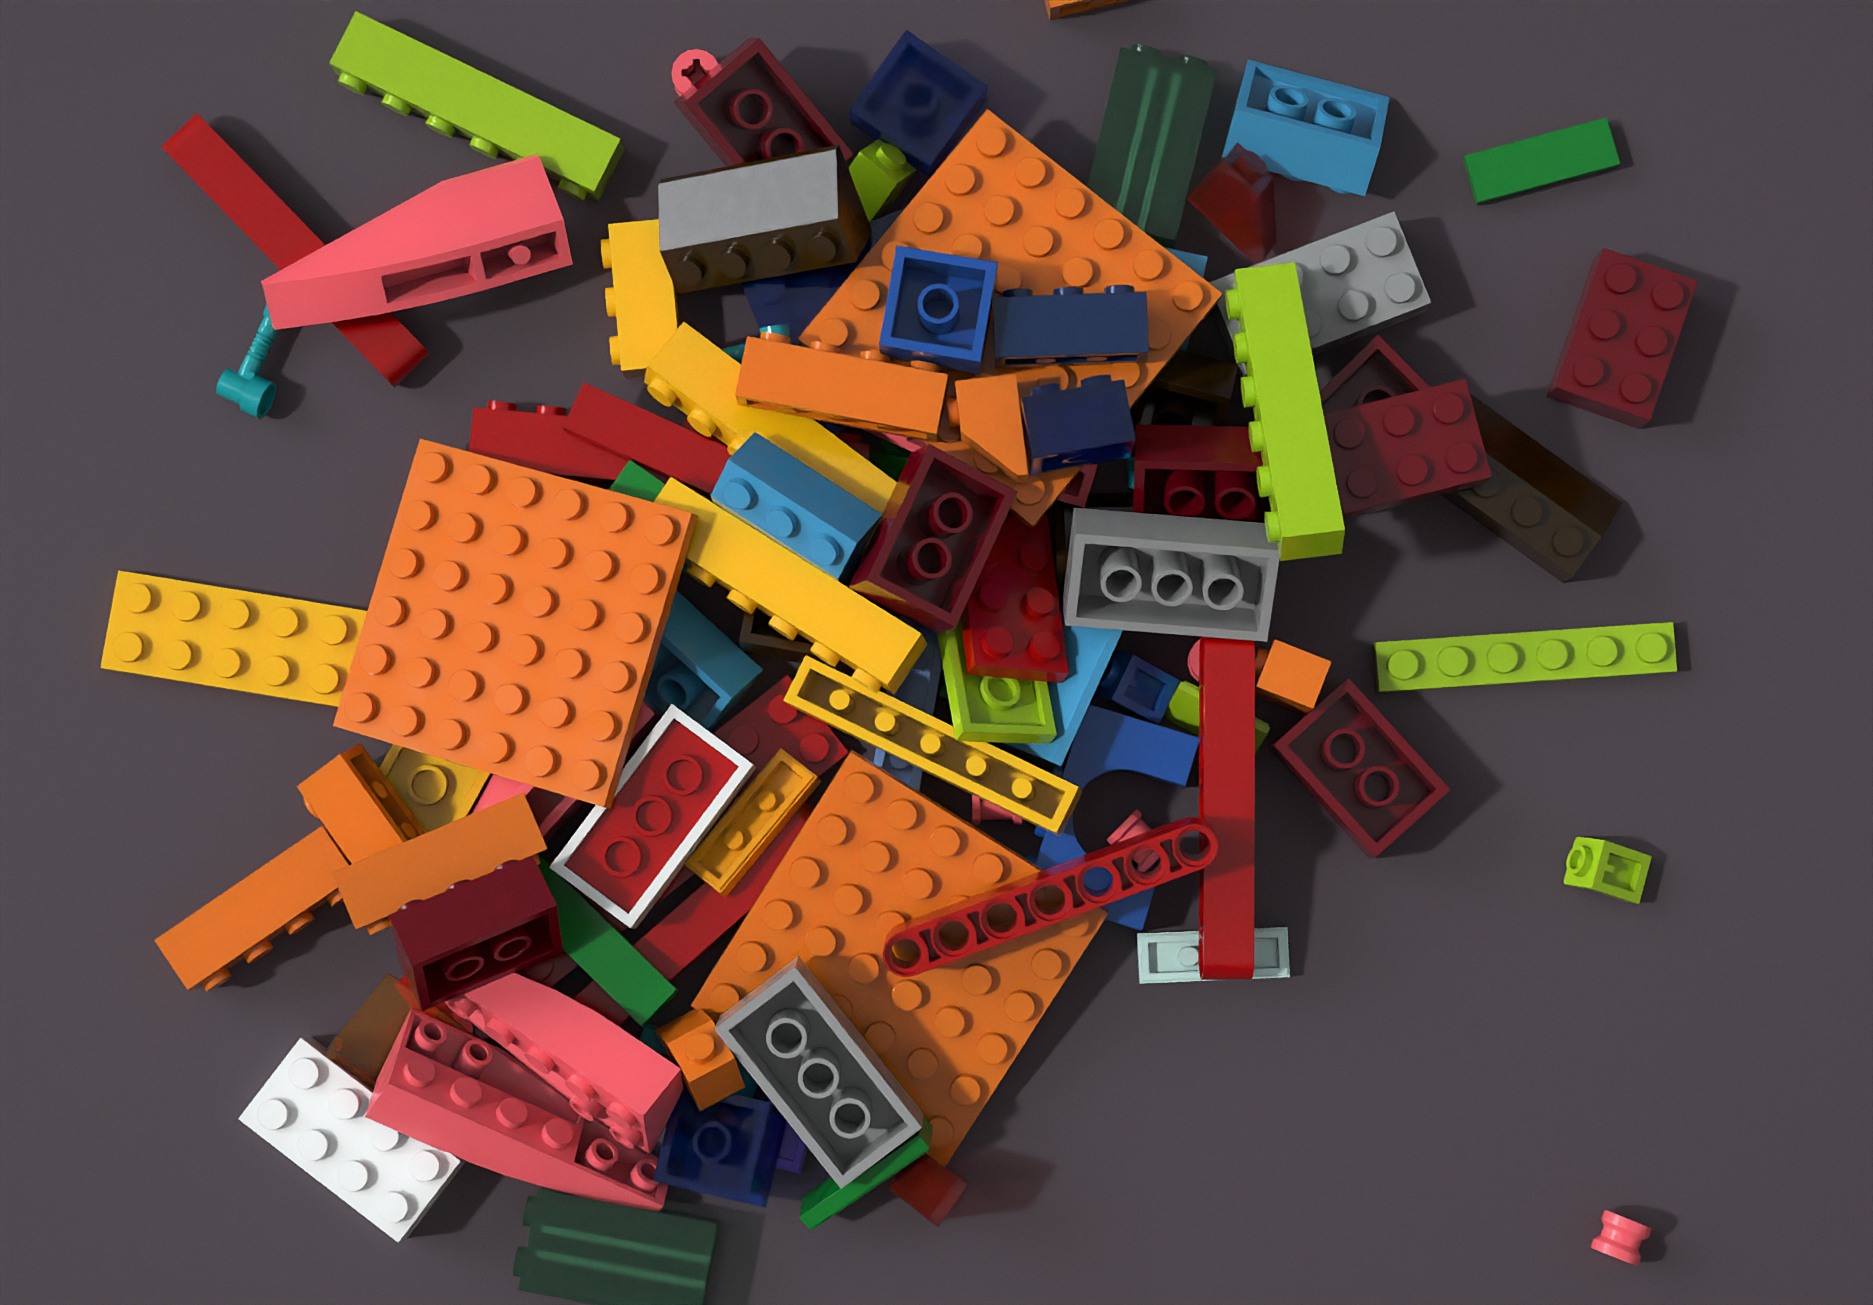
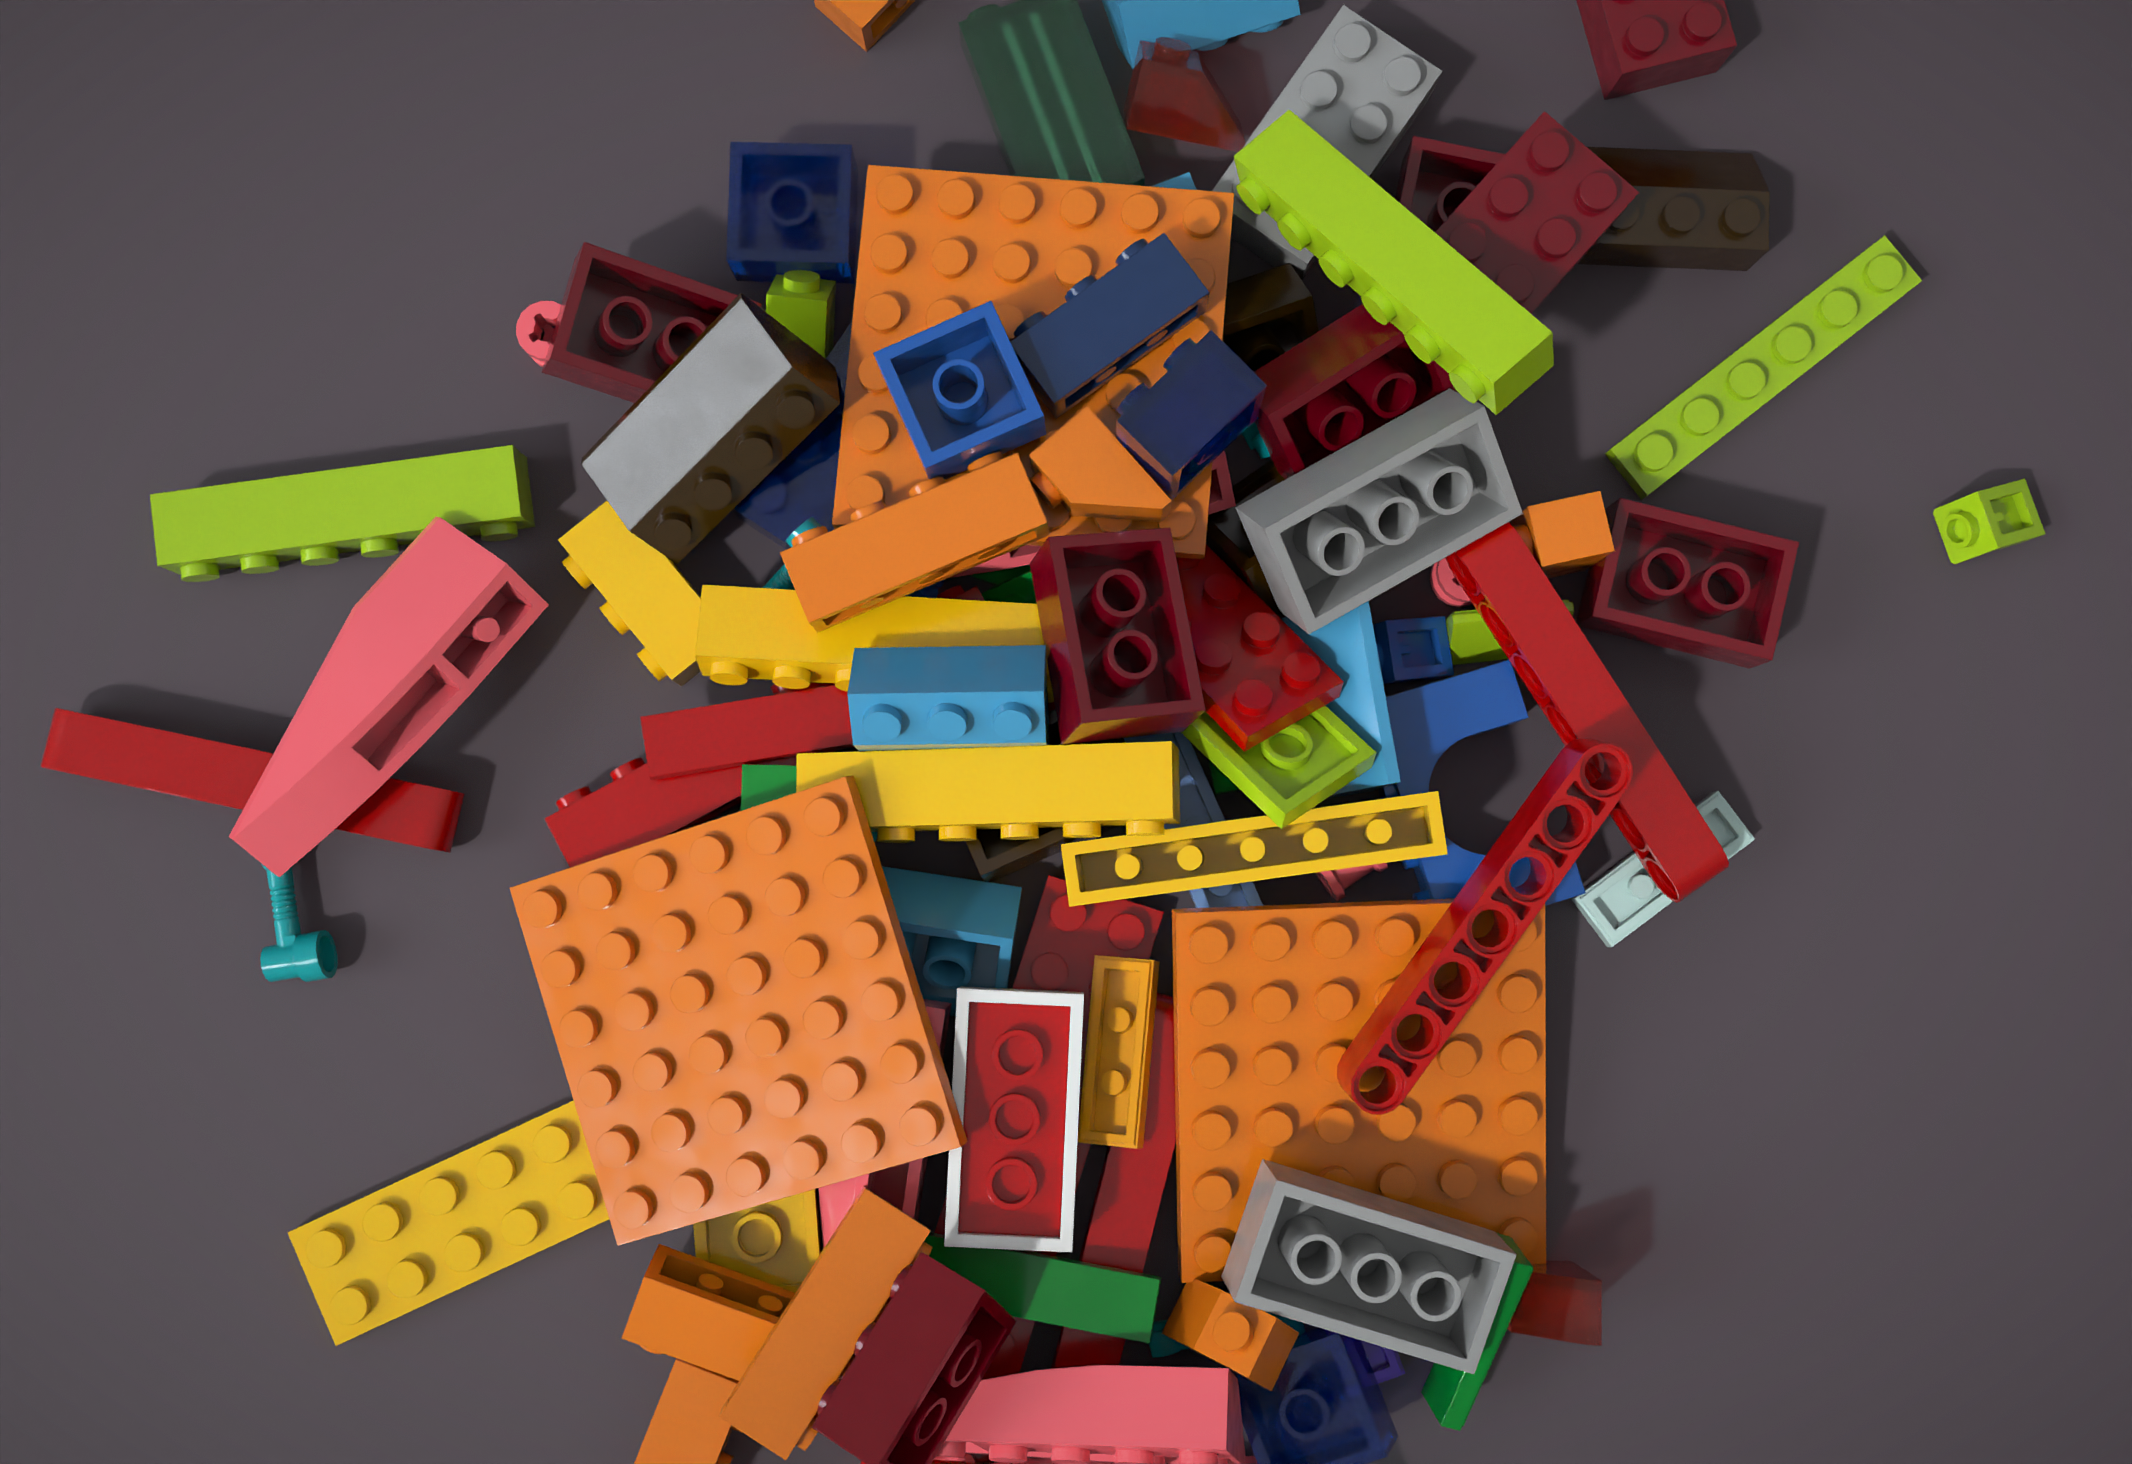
camera: 40 degrees left, 0 degrees up
(1132, 827) = (1501, 800): coral bush -> none

